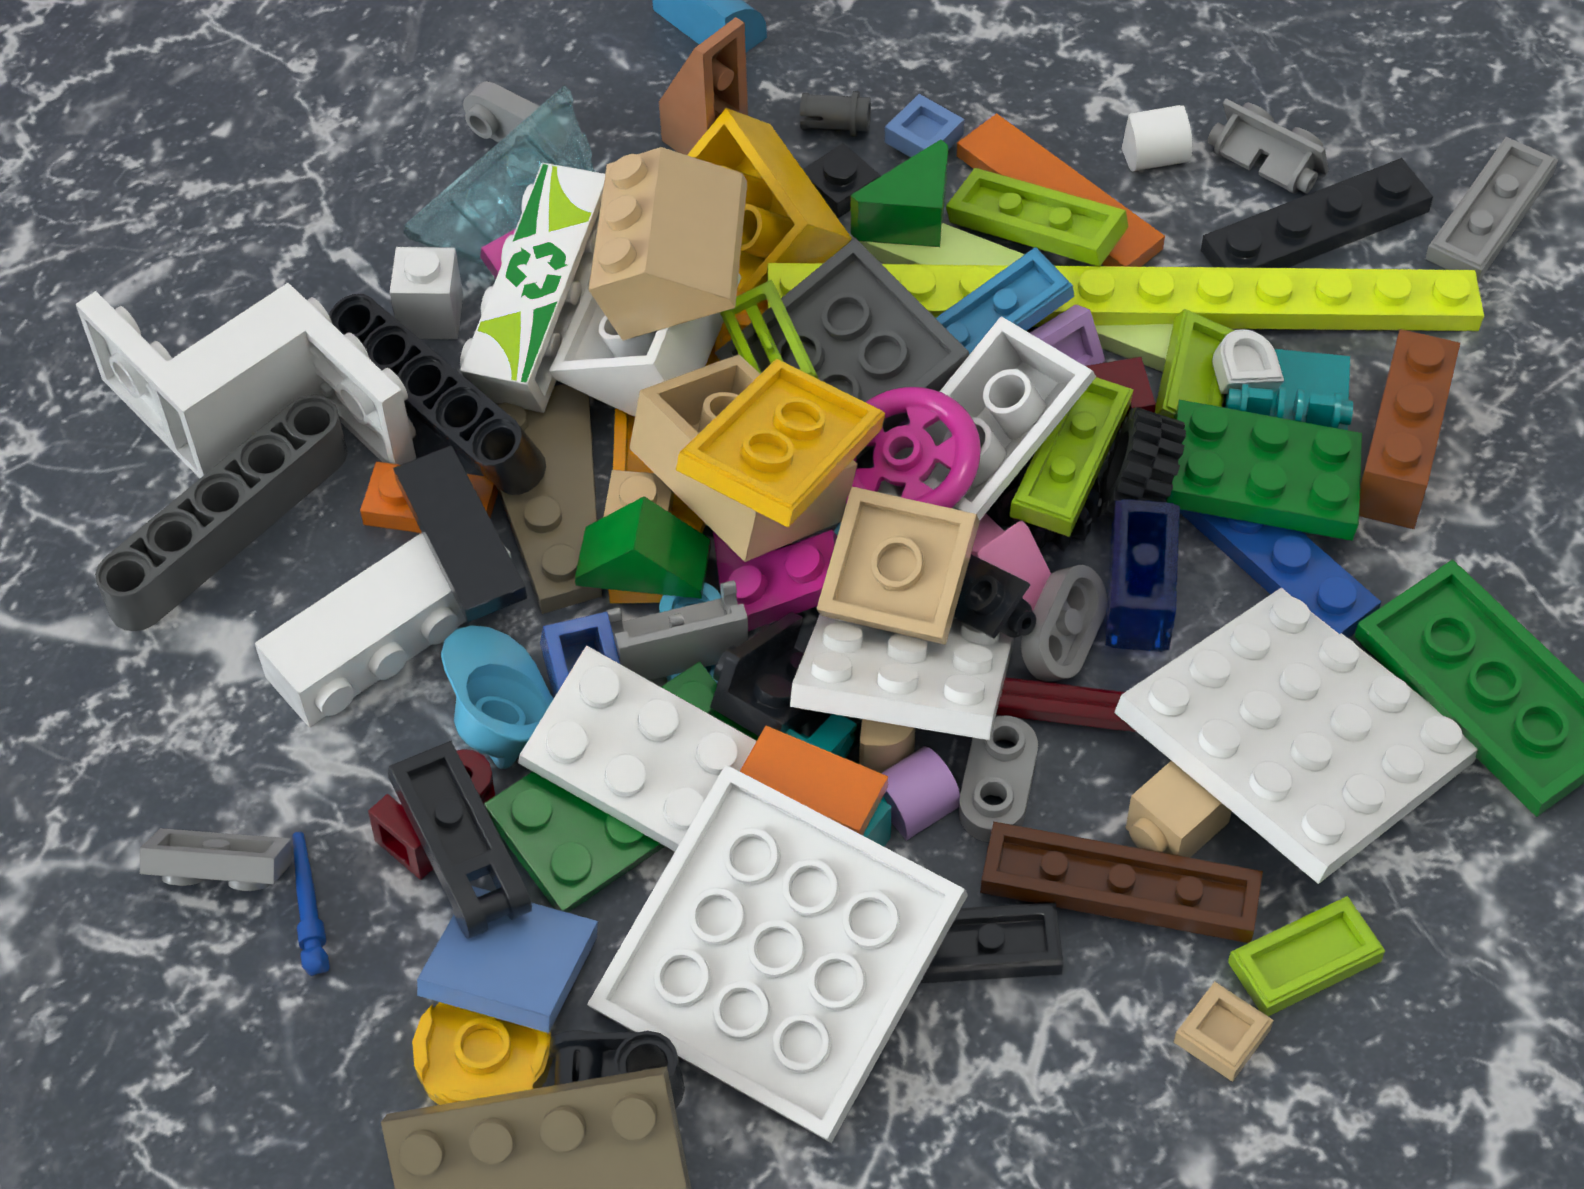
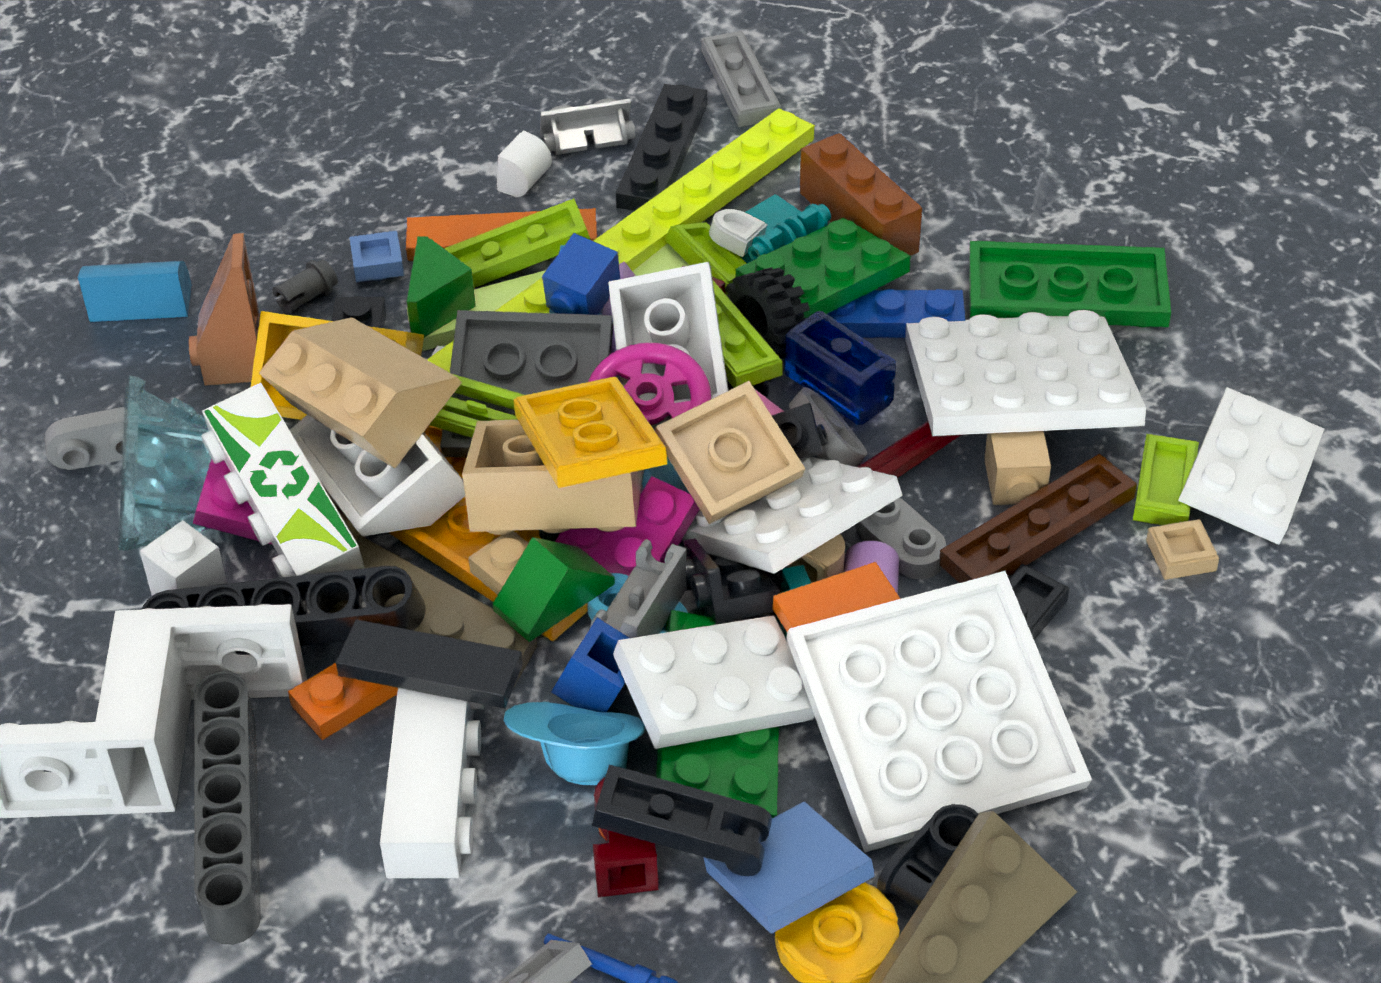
camera: 50 degrees left, 10 degrees down
(991, 288) = (580, 277): none -> blue brick
(1399, 1020) = (1252, 465): none -> white plate

